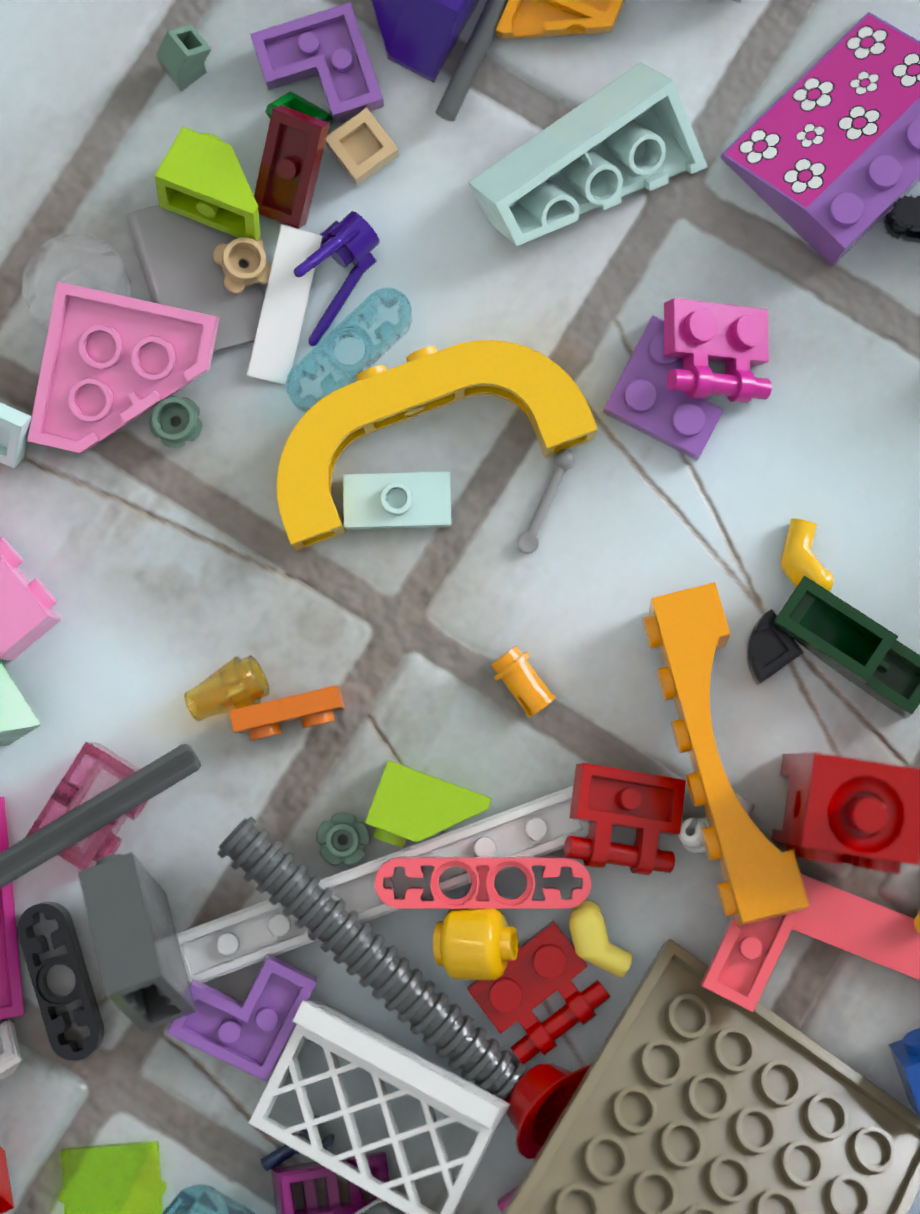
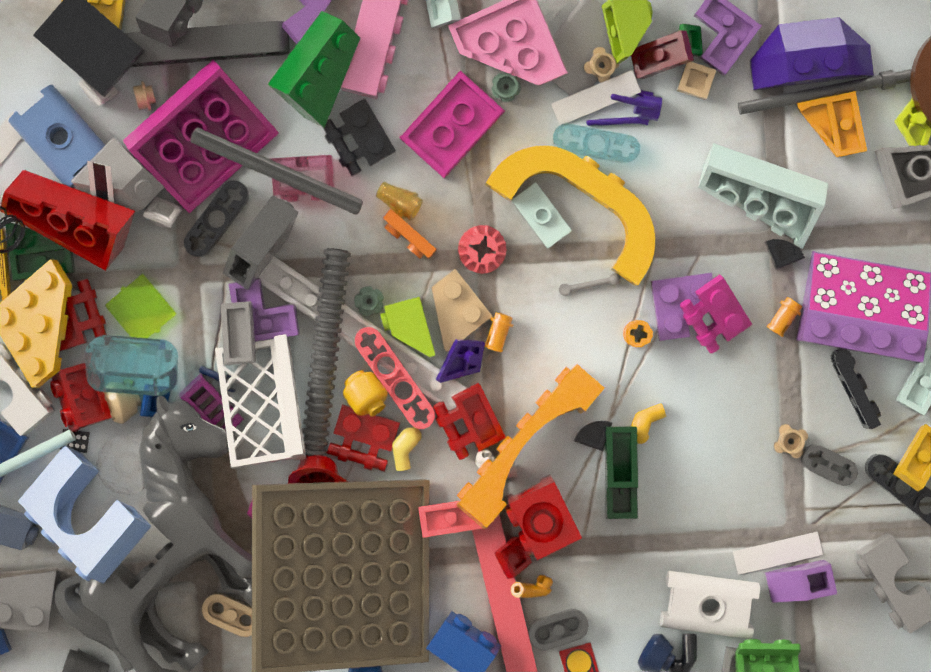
camera: 50 degrees right, 5 degrees up
(99, 669) = (367, 133): none -> black plate
(174, 537) = (452, 124): none -> dark pink tile
(249, 1072) = (238, 333): none -> light grey tile
(383, 646) = (474, 237): none -> coral gear
(447, 718) = (457, 308): none -> tan wing
(526, 763) = (462, 360): none -> dark purple piece
(665, 465) = (644, 328): none -> light orange bush
(694, 197) = (783, 252): none -> black tile
(788, 256) = (784, 316): none -> light orange pin
(873, 896) = (512, 557): none -> red tile

